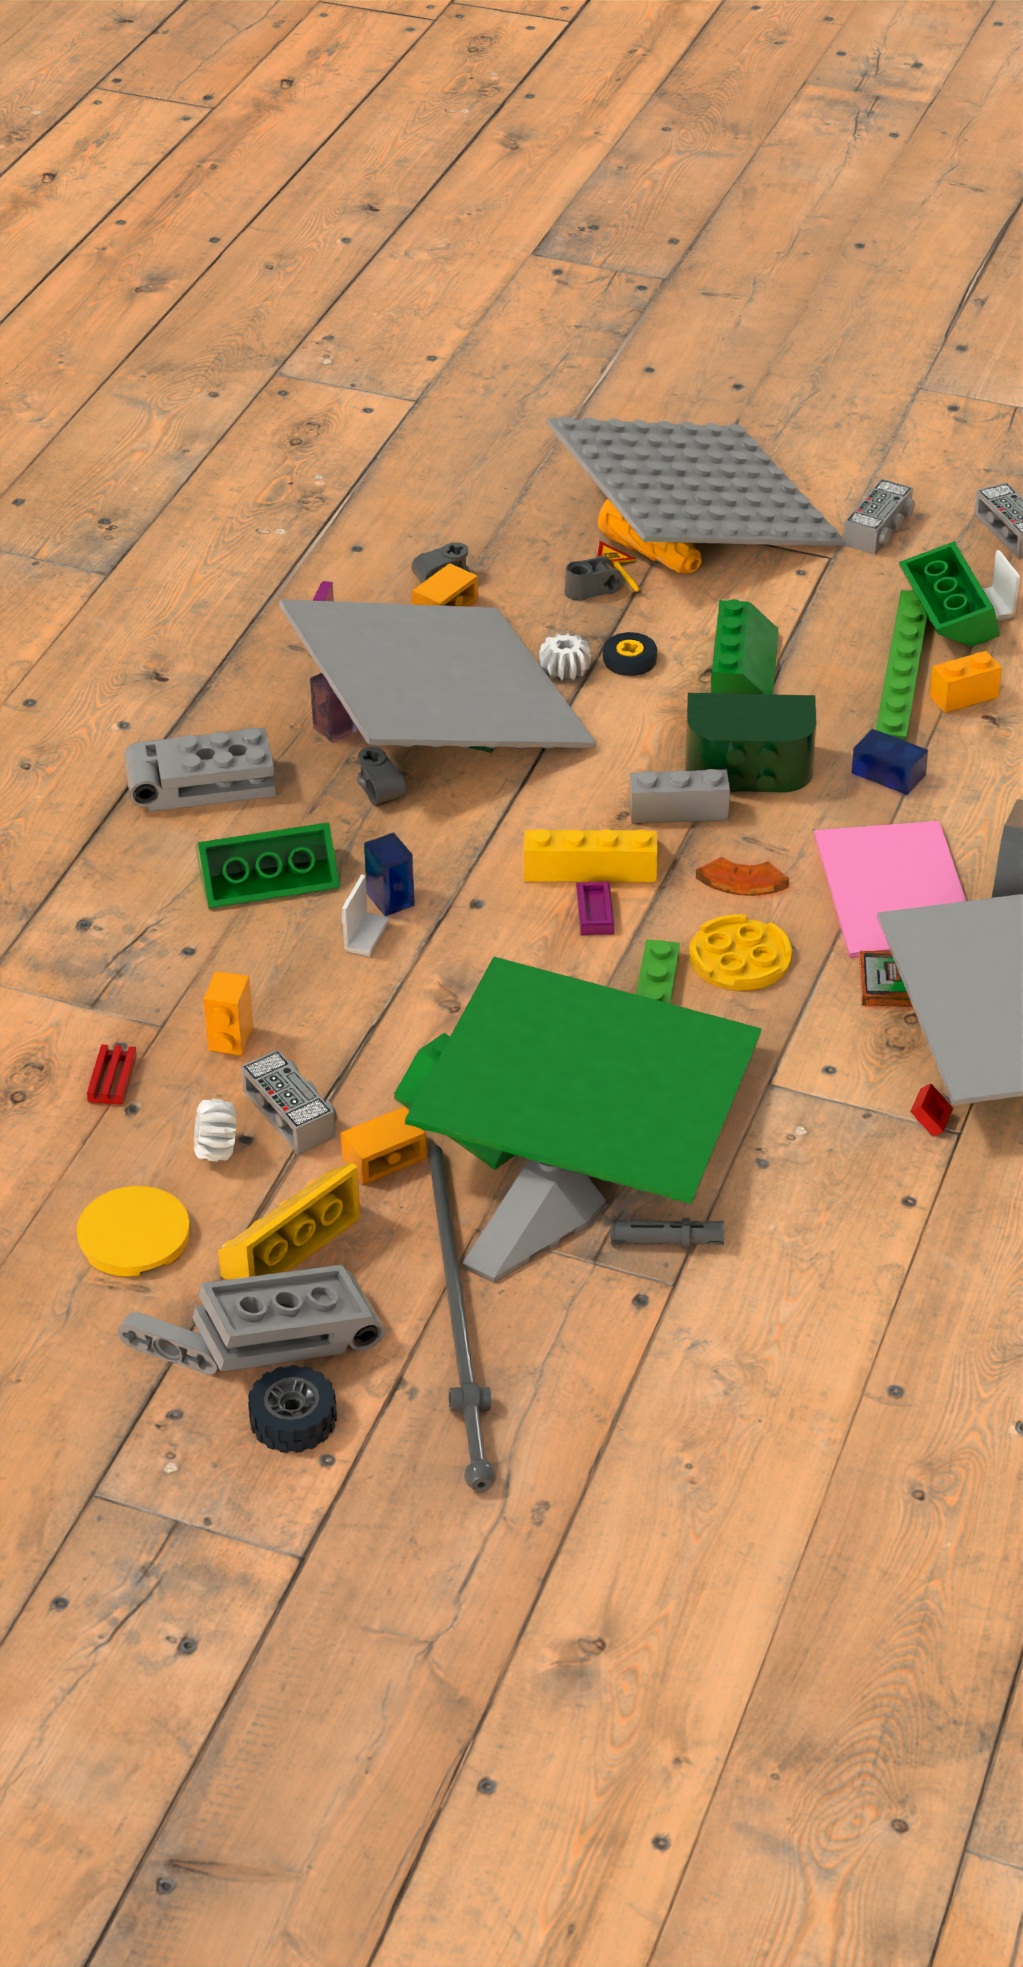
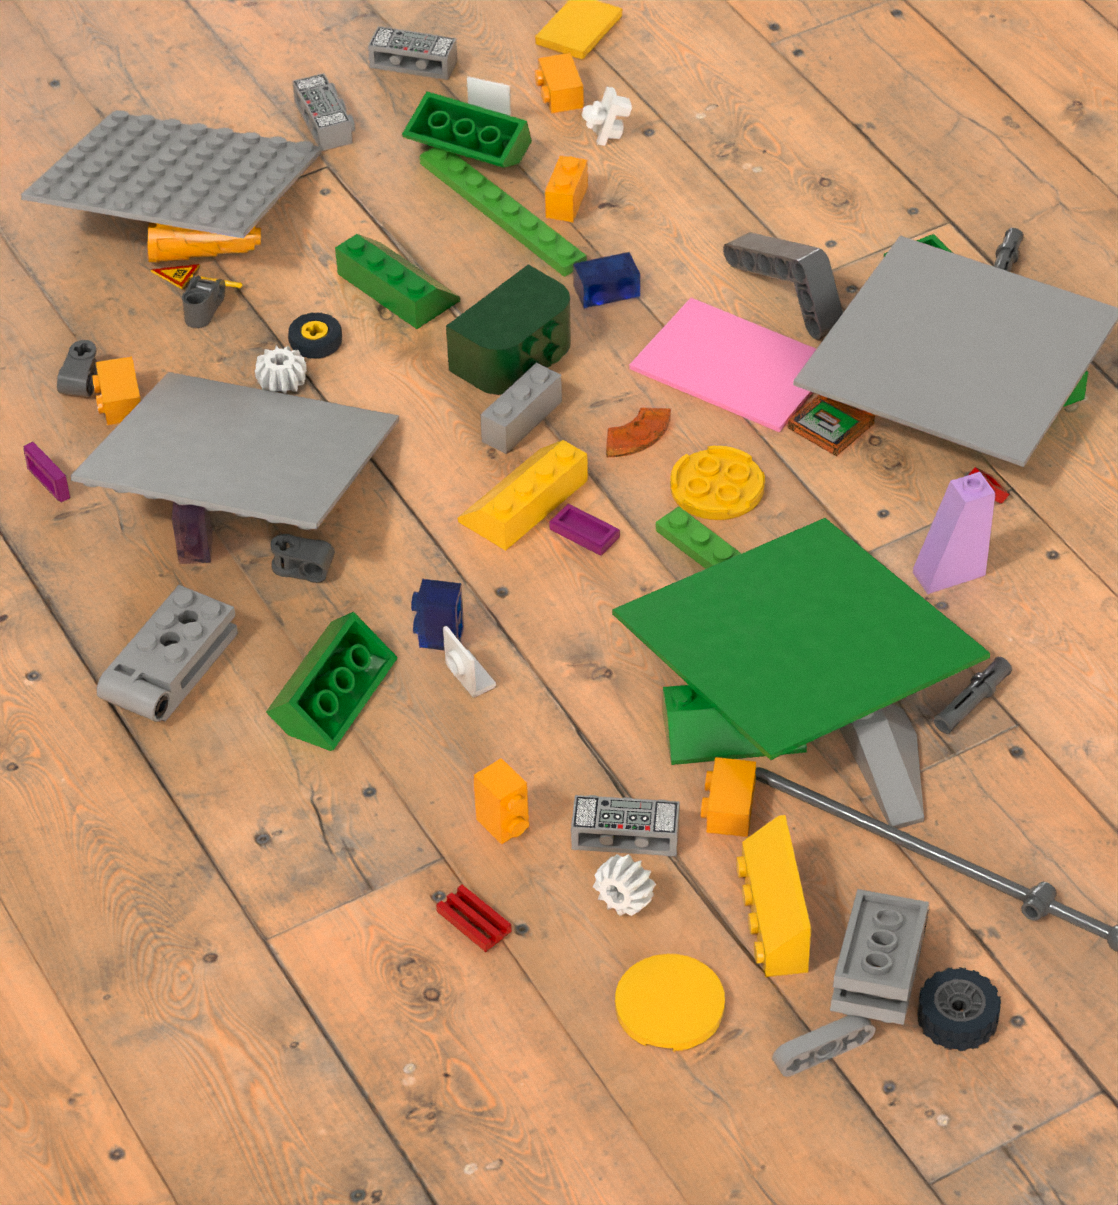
camera: 50 degrees left, 5 degrees up
(817, 1110) = (958, 536): none -> lavender slope

